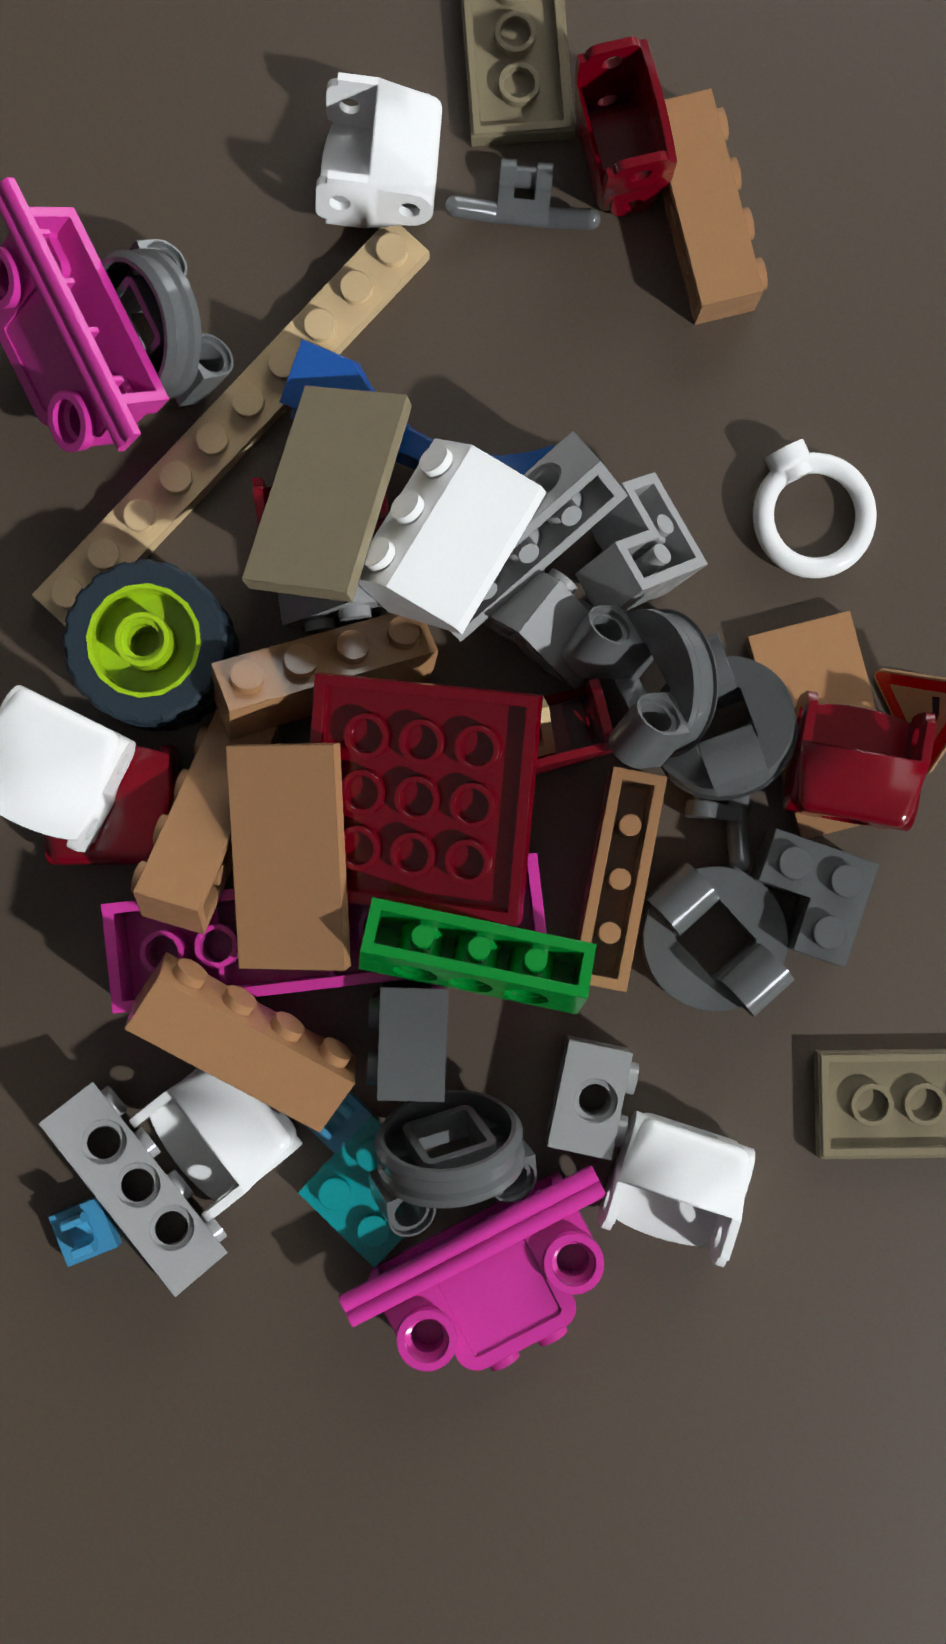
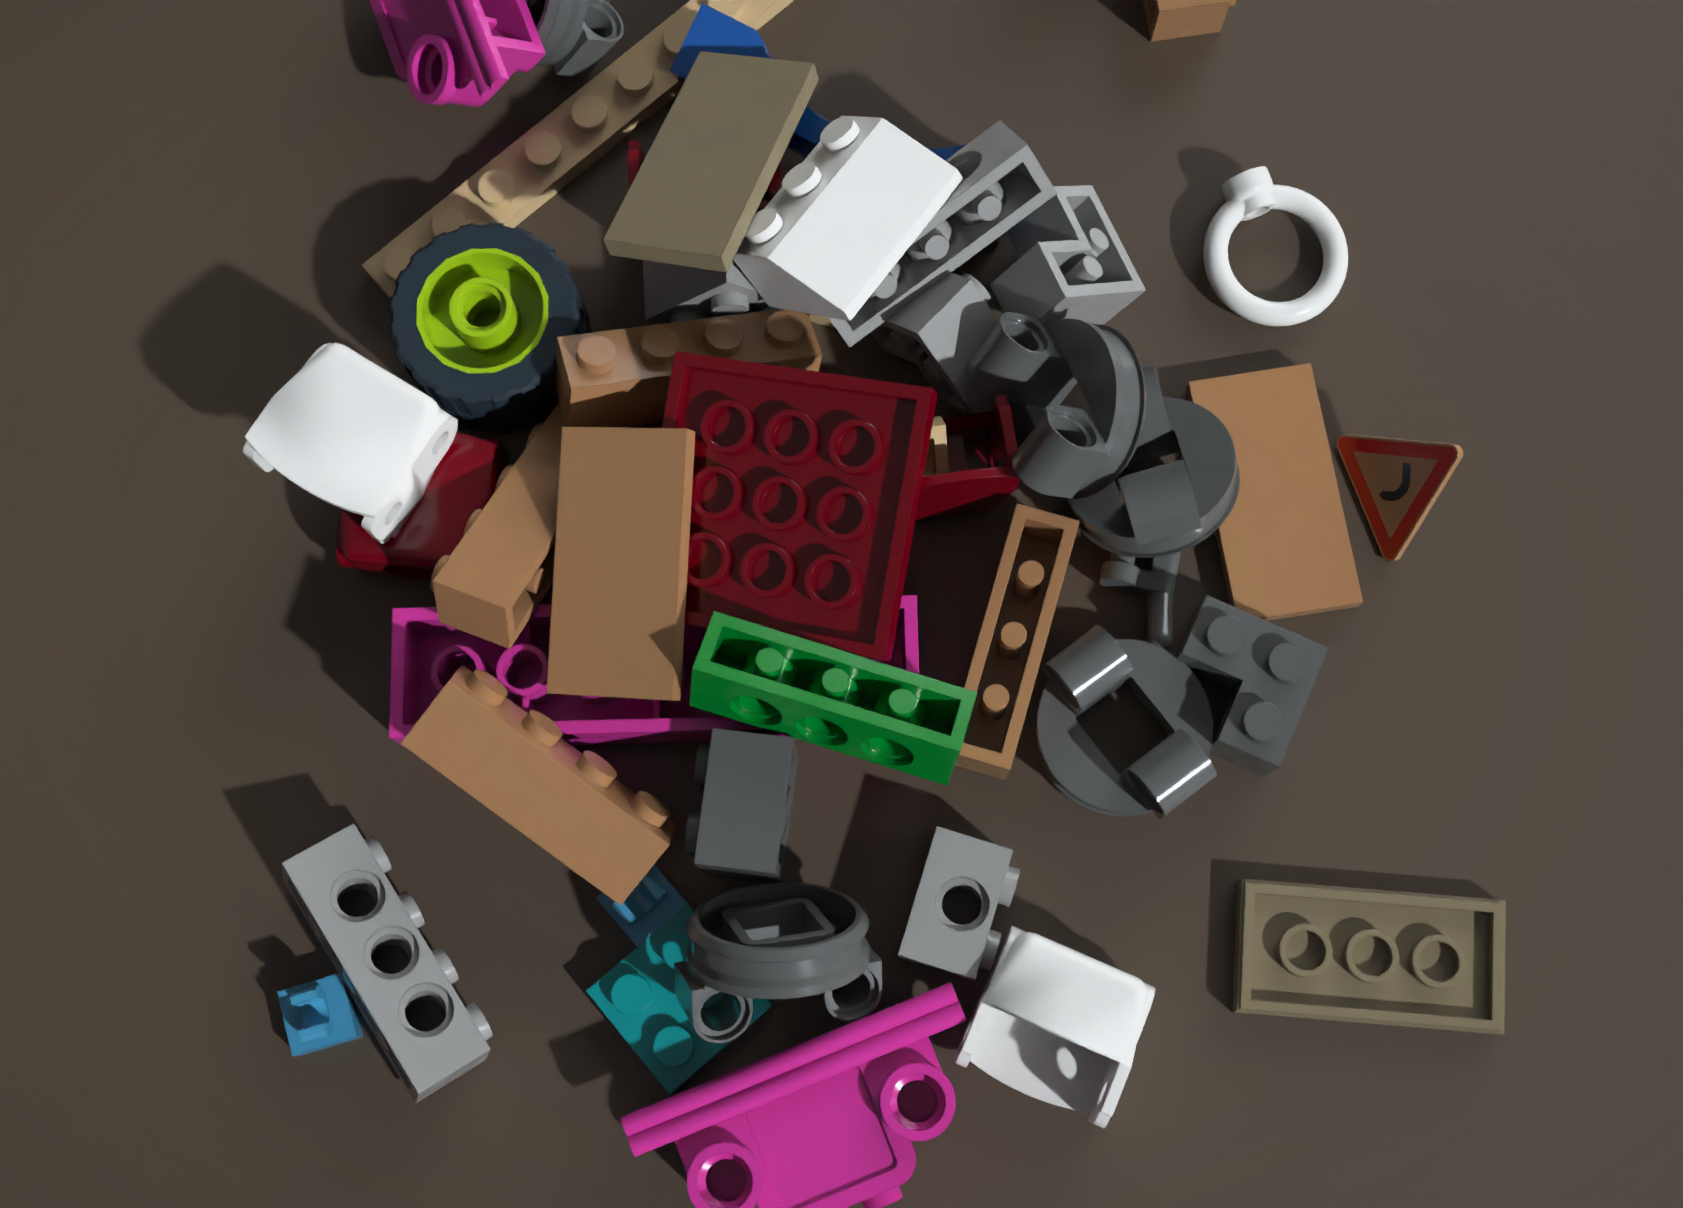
camera: 10 degrees right, 10 degrees down
(219, 1136) = (497, 904): white piece -> none
(858, 764) = (1307, 535): dark red piece -> none

